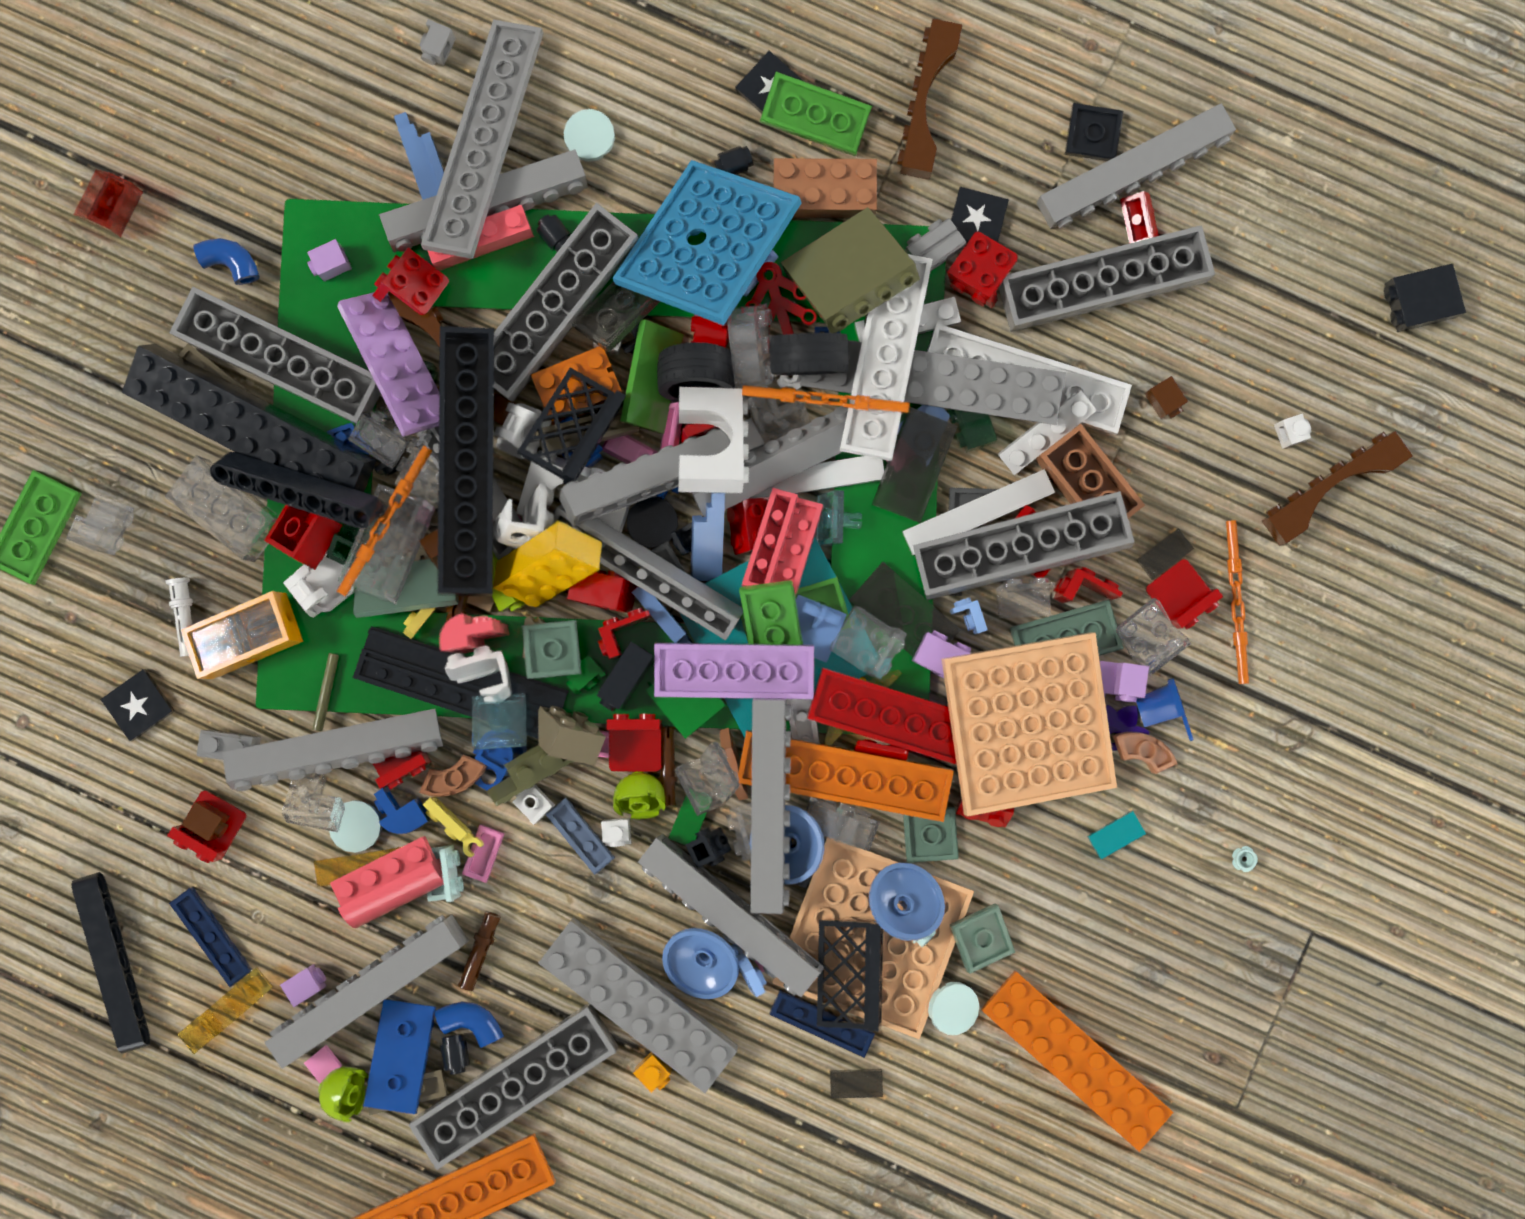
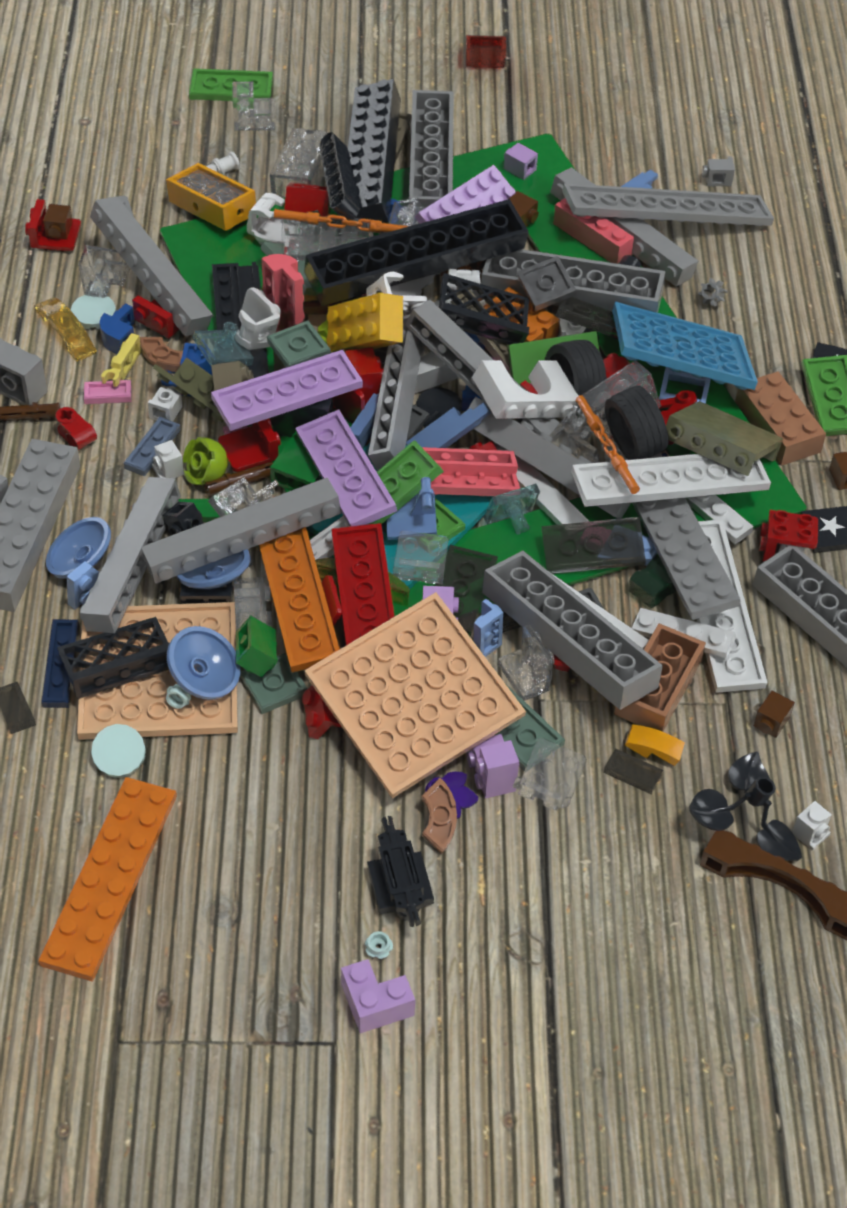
camera: 65 degrees right, 35 degrees down
(137, 705) = (128, 170): black tile -> none
(228, 253) = (489, 116): blue cylinder -> none
(325, 693) = (196, 258): olive bar -> none
(388, 883) = (56, 334): coral brick -> none
(412, 282) = (534, 199): red bracket -> none
(452, 882) = (80, 363): light aqua bracket -> none
(534, 908) = (74, 428): none -> red piece
(561, 339) = (546, 283): none -> flat silver plate
(589, 134) = (718, 270): light aqua tile -> none
(615, 690) = (286, 390): none -> lavender plate
(621, 157) = (717, 296): none -> light grey gear
(734, 160) = (761, 359): black brick -> none
(899, 841) = (256, 646): none -> green brick
(938, 244) = (784, 496): light grey brick -> none
(982, 938) = (195, 750): sand green tile -> none
(1068, 586) = (562, 695): red bracket -> none
(1116, 834) = (347, 828): teal tile -> none
(1152, 521) = (649, 740): none -> light orange slope
(1163, 705) = (489, 814): blue container -> none
(1183, 594) = (603, 794): red bracket -> none
(1197, 815) = (399, 876): none -> black piece
(1234, 565) = (594, 860): orange piece -> none
(1251, 514) = (747, 774): none -> black plant
(1303, 888) = (375, 1003): none -> lavender brick

